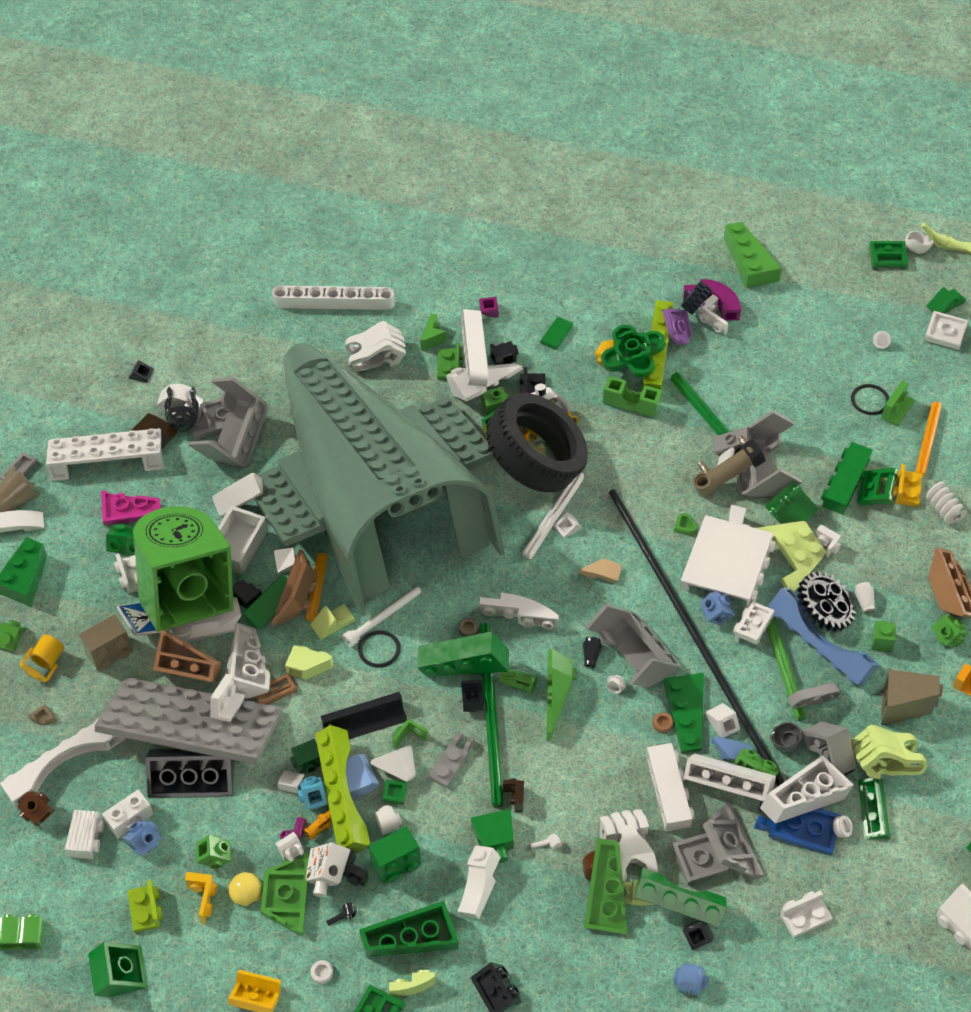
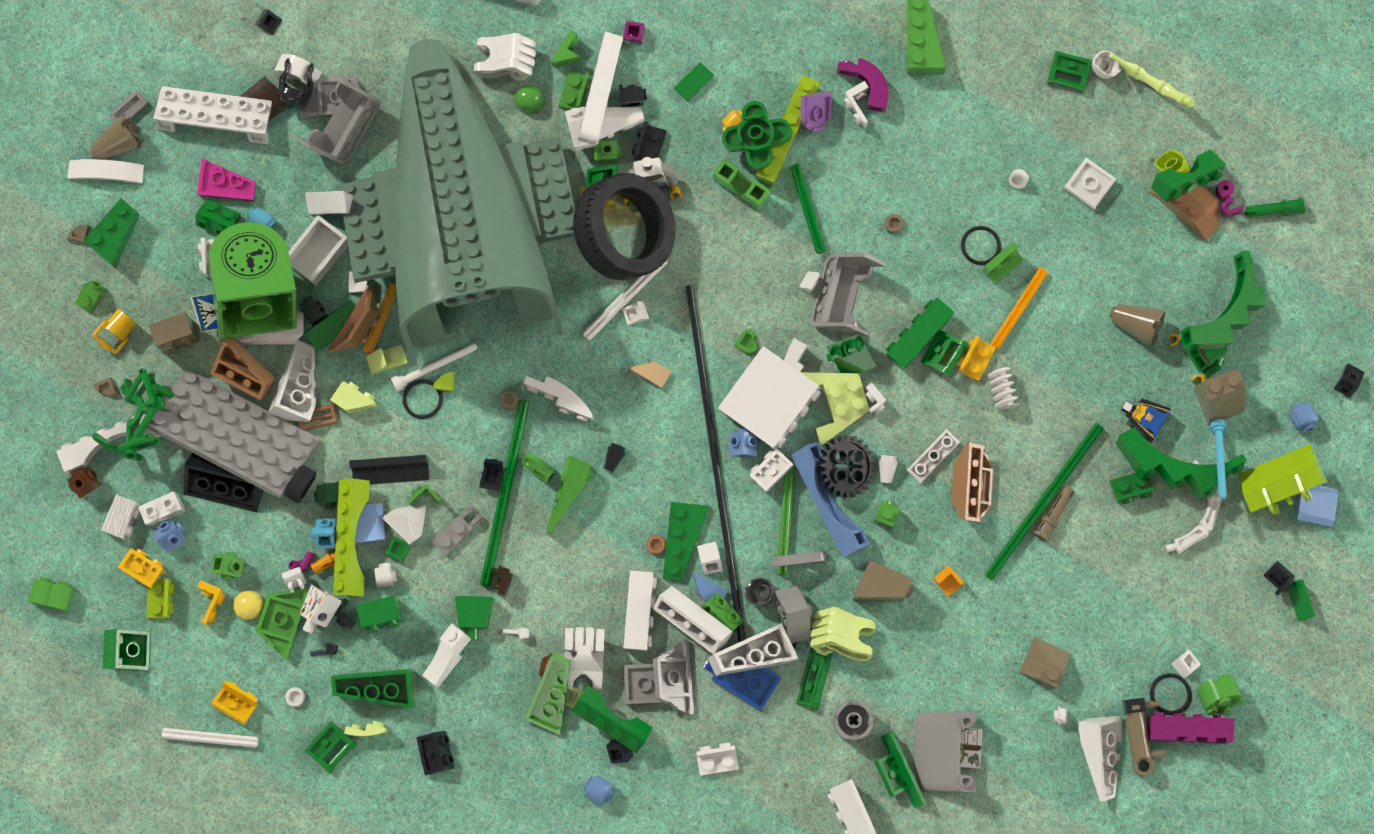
camera: 20 degrees right, 25 degrees up
(85, 735) = (155, 403): none -> green piece
(117, 877) = (141, 568): none -> yellow bracket
(224, 700) = (267, 427): white bracket -> none
(274, 751) = (300, 484): none -> black tyre
(290, 781) = (311, 512): white slope -> none
(398, 627) = (444, 382): none -> lime tile
(408, 377) = (529, 99): none -> bright green hair
(464, 656) = (492, 435): green wedge -> none
(617, 682) = (625, 495): white plate -> none
(637, 644) = (660, 463): light grey windscreen -> none
(696, 297) = (844, 83): black wheel -> none
(726, 441) = (822, 263): light grey plate -> none
(728, 469) = (828, 291): dark tan piece -> none
(784, 399) = (894, 223): none -> dark tan tile
(842, 826) = (778, 689): white tile -> none
(901, 585) = (925, 464): none -> white tile
(934, 834) = (841, 720): none -> light grey brick
(945, 301) = (1104, 147): green slope -> none
(950, 631) = (950, 527): bright green brick -> none

